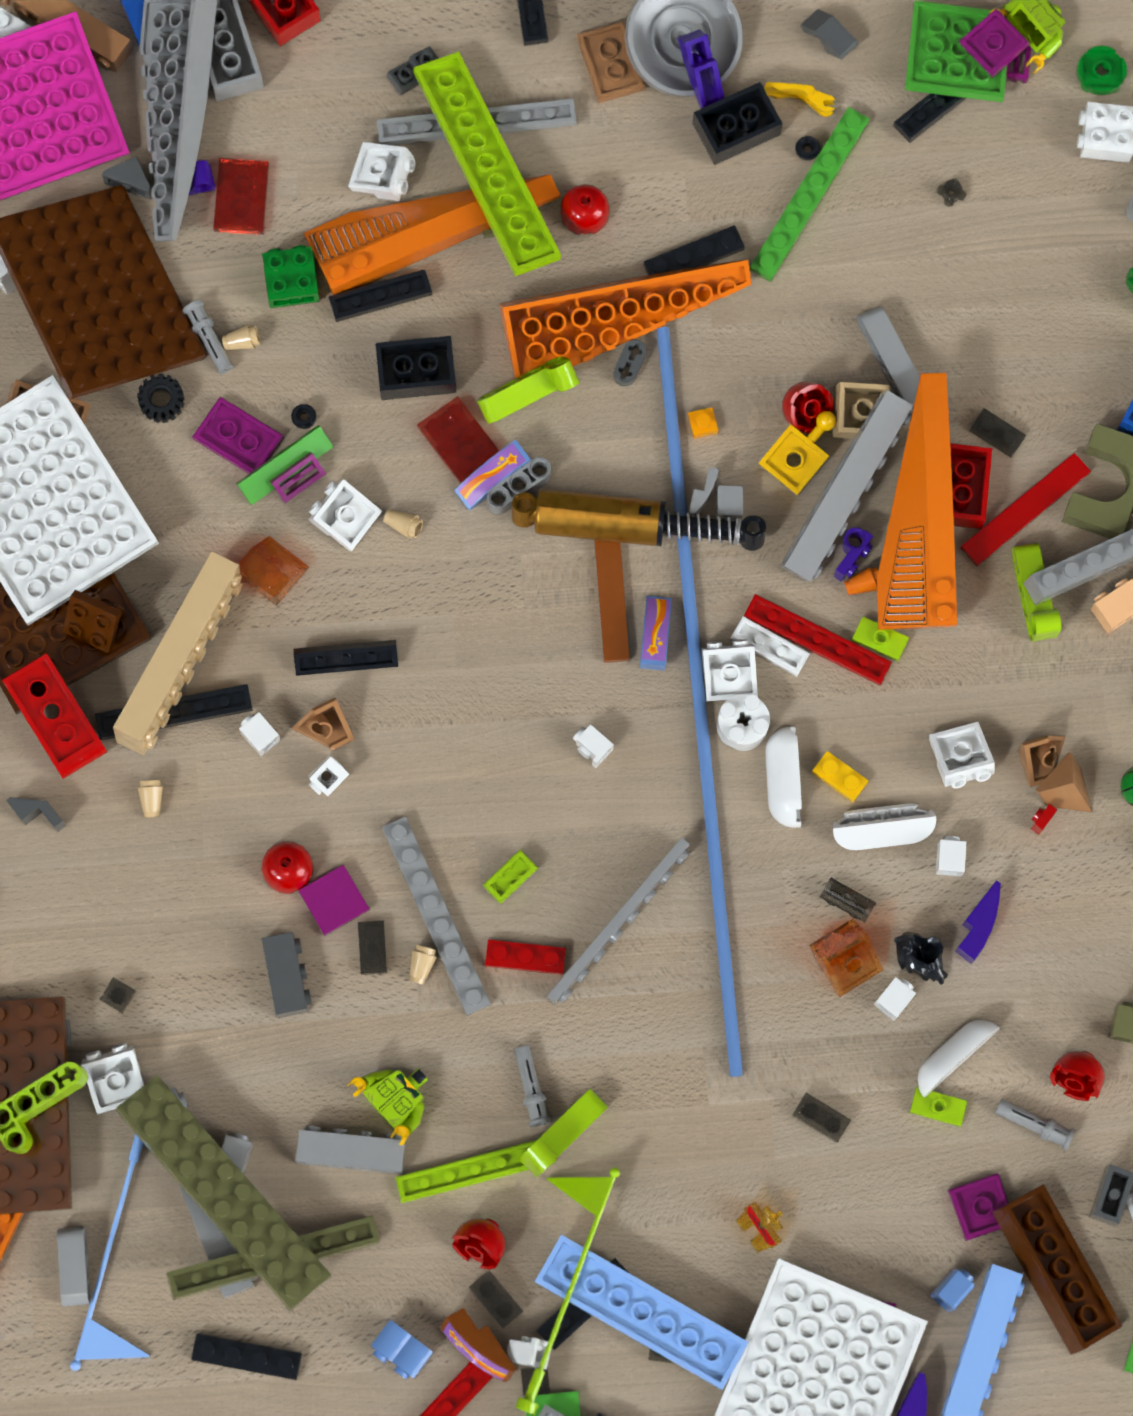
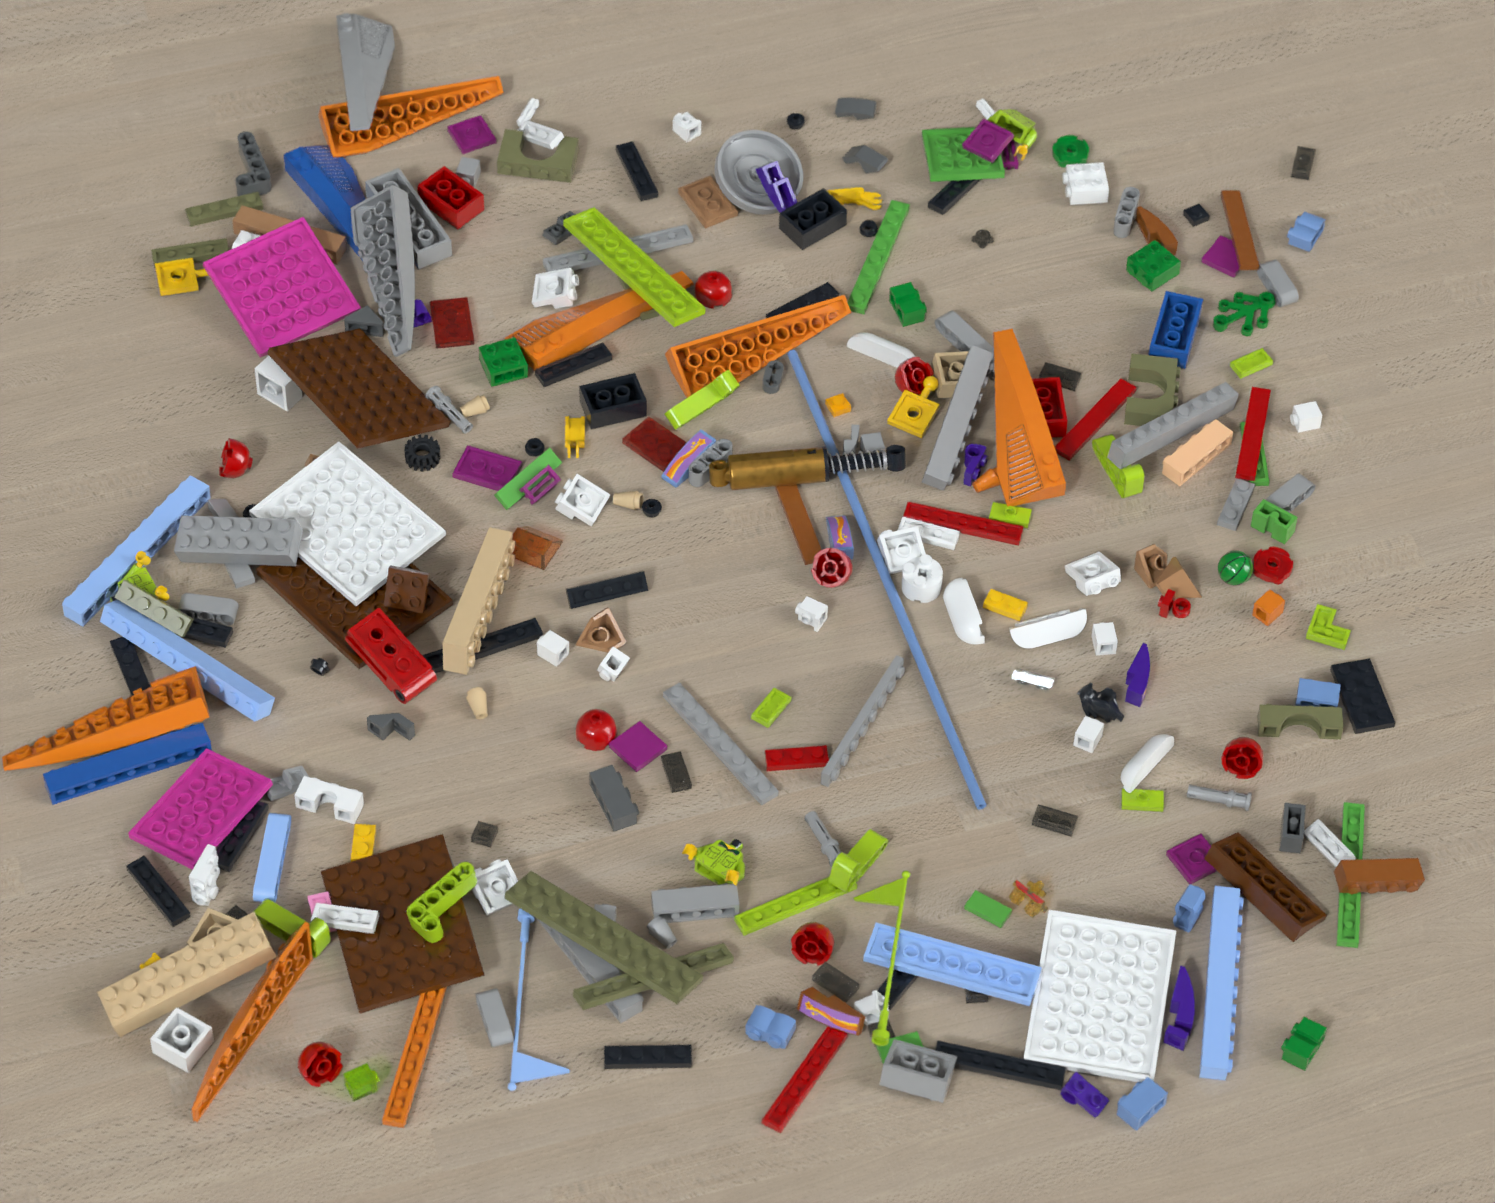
camera: 10 degrees left, 25 degrees down
(302, 1184) = (661, 931): none -> light grey cone
(358, 405) = (574, 434): none -> yellow arm
(421, 963) = (717, 773): tan cone -> none
(430, 546) = (651, 508): none -> black plate
(632, 686) = (831, 567): none -> red cylinder
(708, 1229) = (988, 909): none -> bright green tile
(780, 349) = (879, 348): none -> white brick
(827, 282) = (907, 304): none -> green brick
(846, 957) = (1044, 714): clear orange slope -> none
(1057, 819) = (1181, 602): none -> red bush

